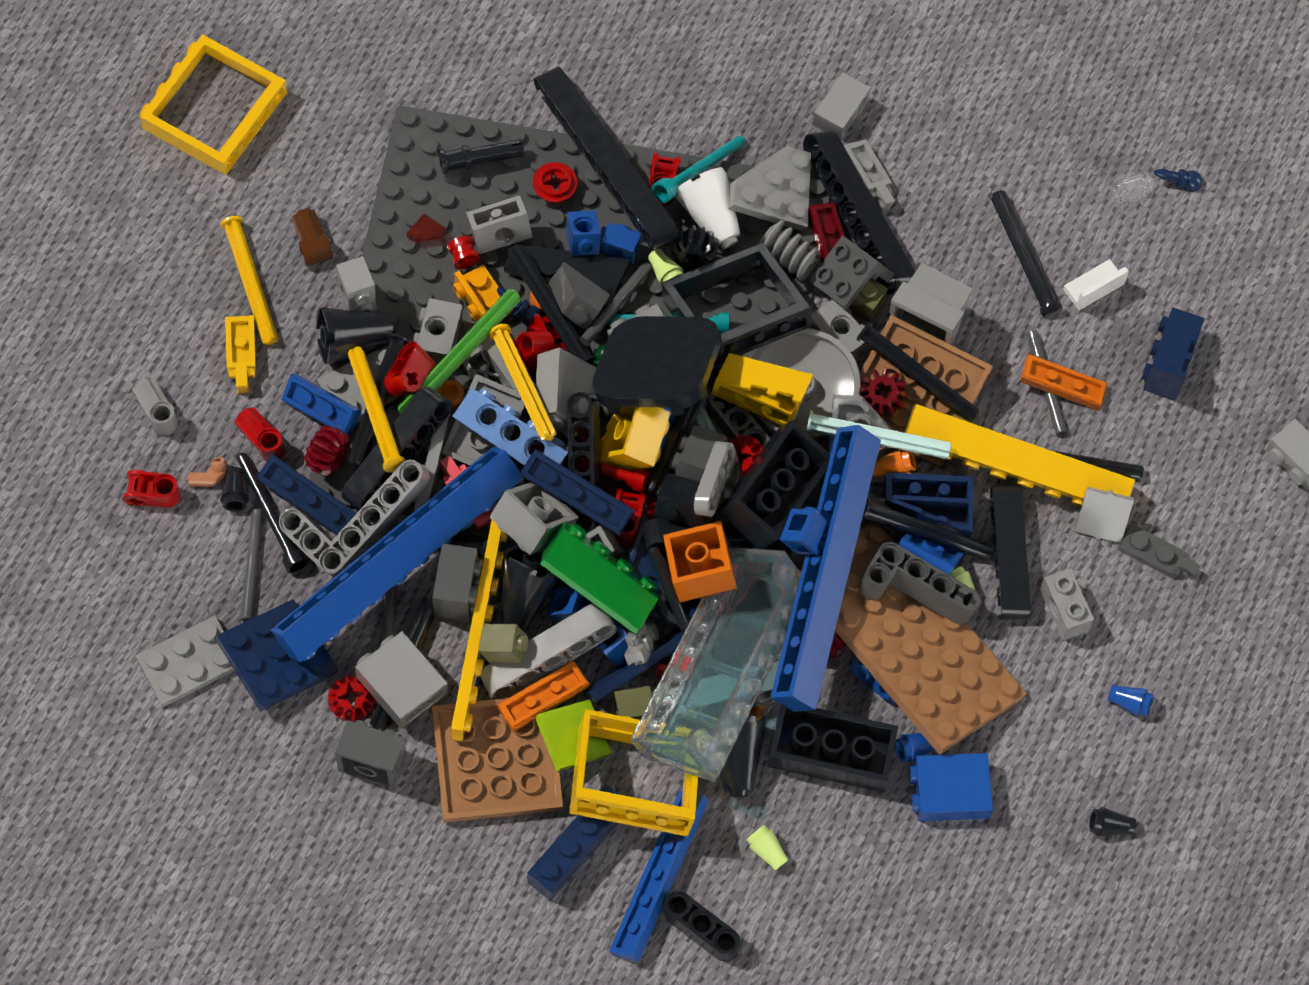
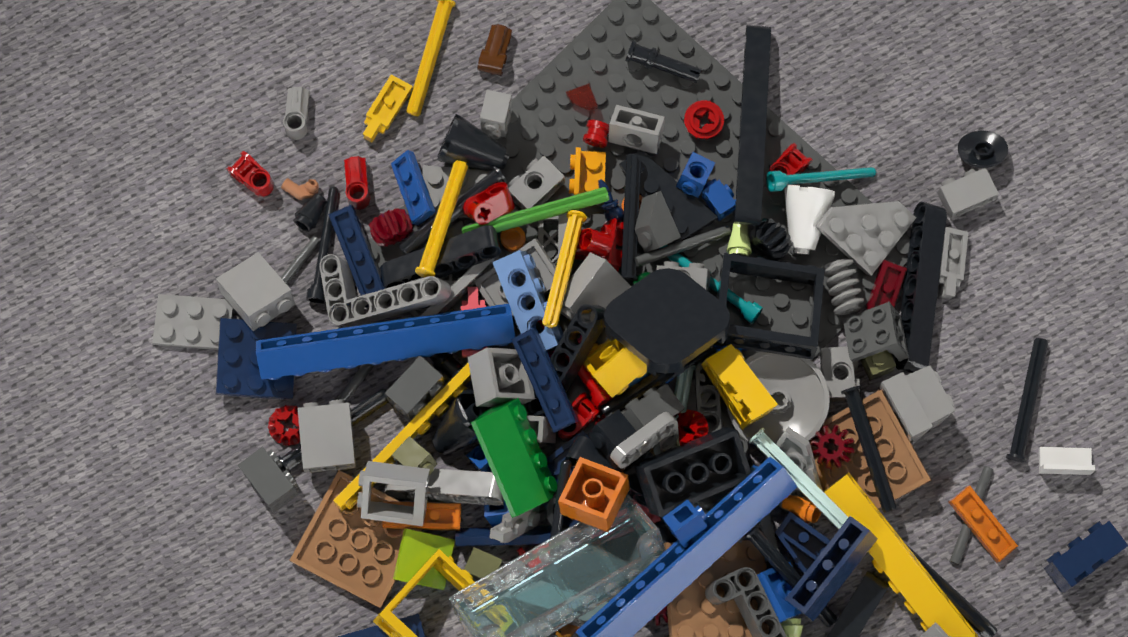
camera: 40 degrees right, 10 degrees up
(234, 589) = (255, 291): none -> light grey brick
(479, 669) = (394, 475): none -> light grey window
(827, 60) = (982, 149): none -> black dish
(963, 494) = (831, 568): none -> dark blue brick

